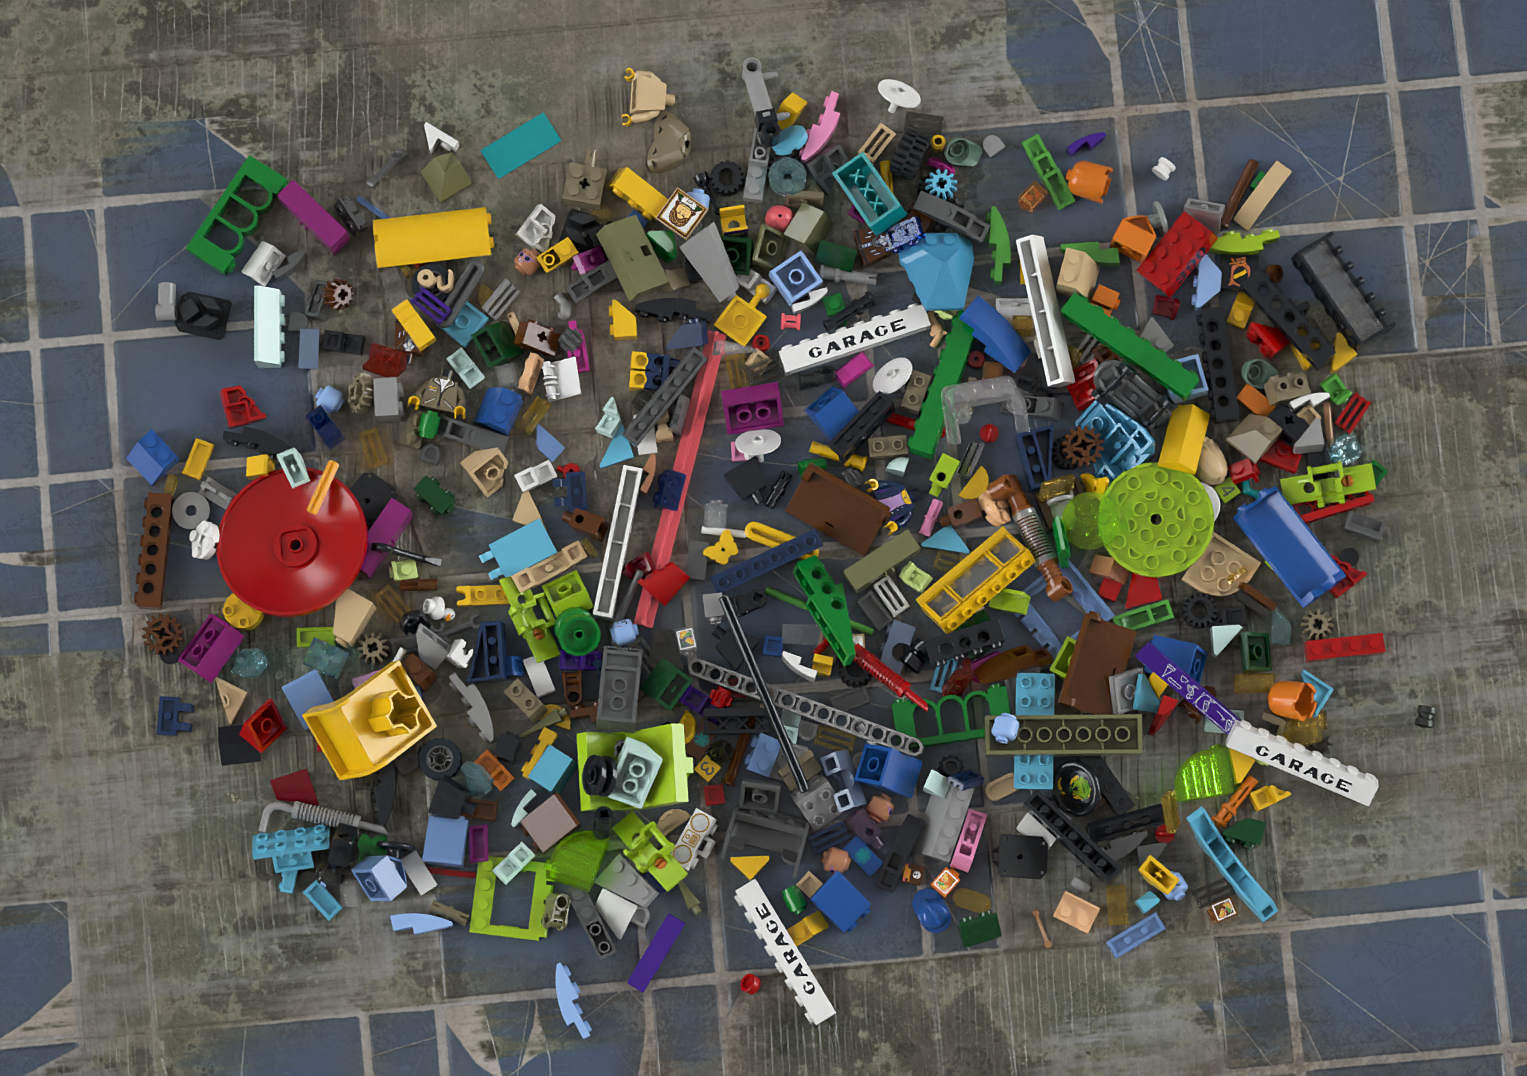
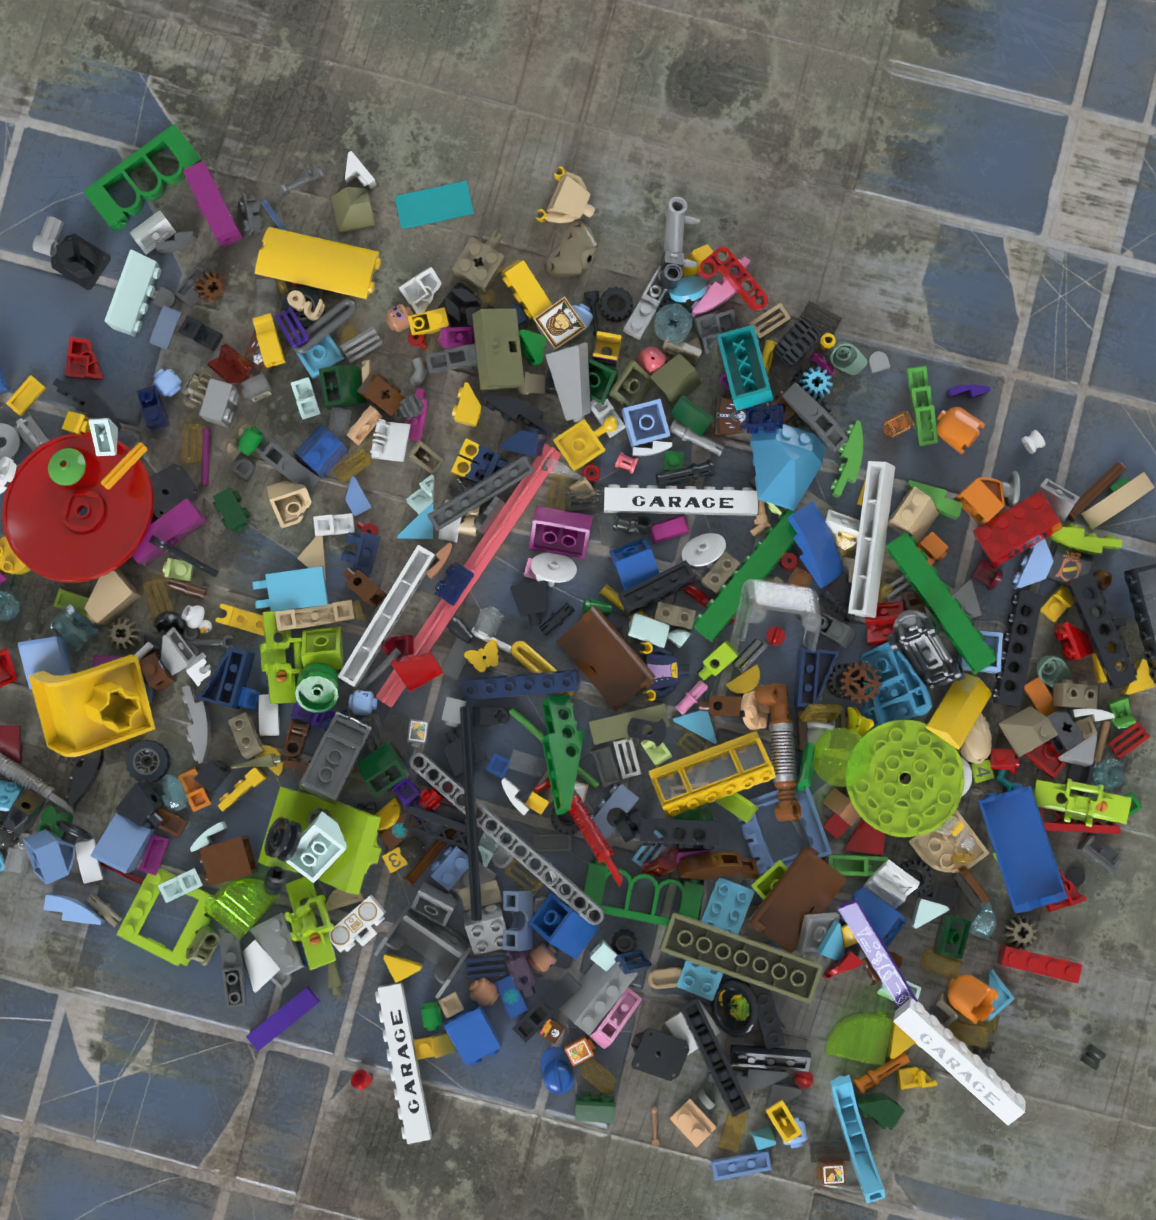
camera: 20 degrees right, 5 degrees up
(272, 514) = (72, 471): none -> bright green dish
(390, 456) = (205, 457): none -> magenta piece
(416, 374) = (256, 388): none -> clear brick
(440, 396) = (271, 416): dark tan torso -> none
(552, 279) = (417, 342): none -> red piece
(553, 770) = (247, 811): medium azure slope -> none
(566, 994) = (185, 1027): light blue slope -> none
(599, 383) = (425, 457): none -> dark tan slope
(691, 532) = (460, 630): none -> black cone
(714, 795) = (392, 887): red tile -> none
(833, 117) = (735, 281): none -> red beam
(868, 467) = (648, 630): none -> light aqua slope
(898, 94) = (807, 281): white shield -> none
(911, 554) = (658, 734): none -> black piece
(1005, 728) = (687, 933): light blue head -> none
(1170, 811) = (817, 1062): clear yellow tile -> none
(1179, 621) = (891, 884): none -> white slope
(1223, 551) = (958, 833): none -> clear hips

